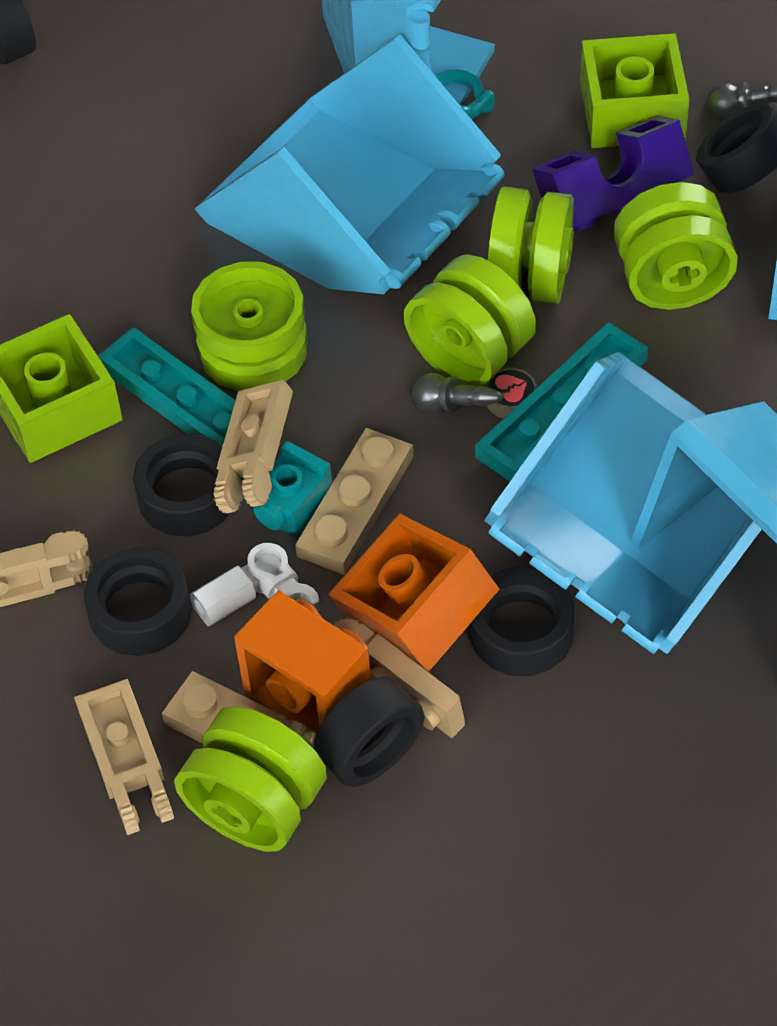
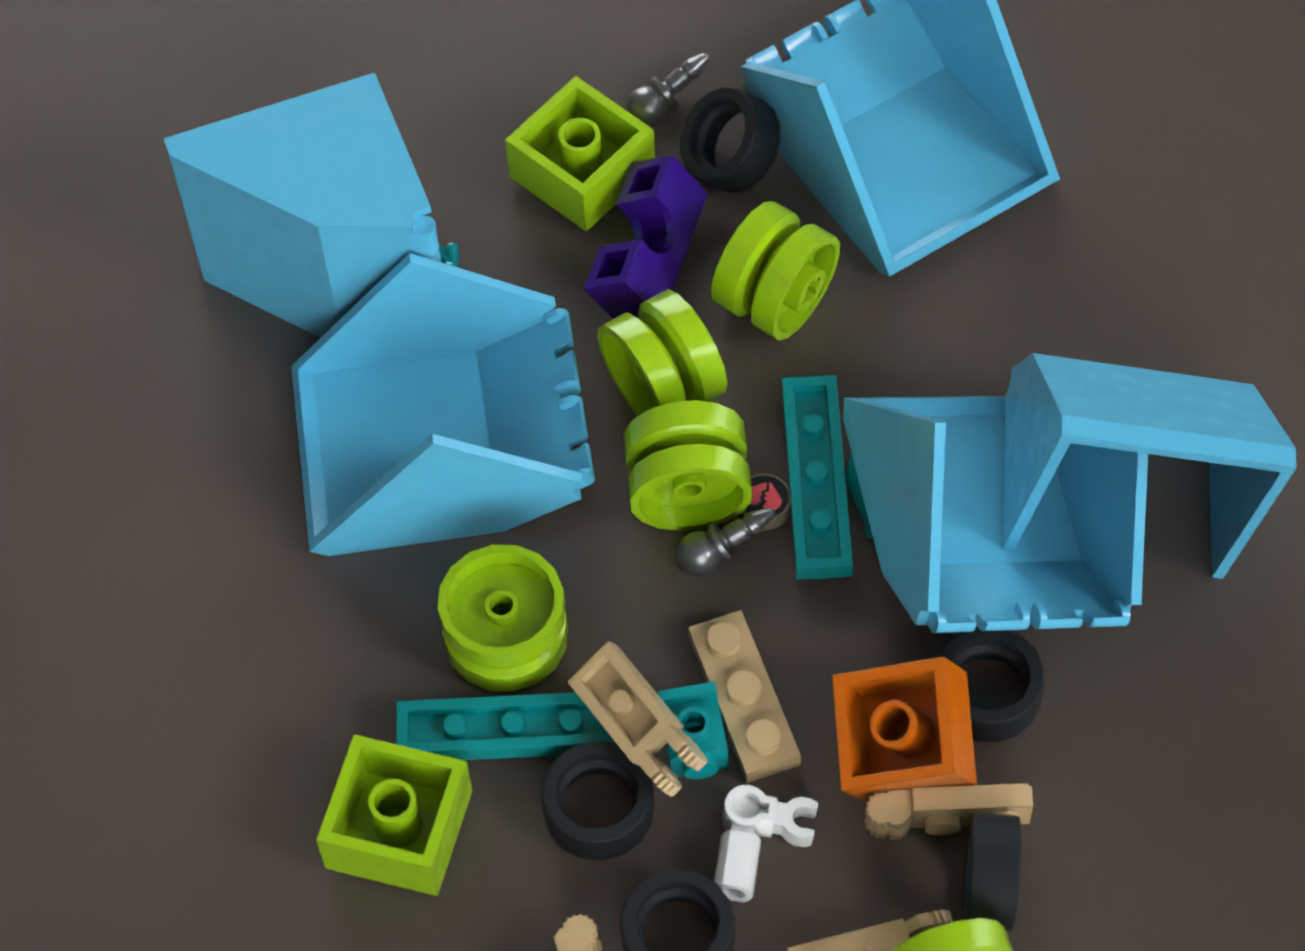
camera: 45 degrees left, 5 degrees up
(299, 660) = (893, 864): orange brick -> none

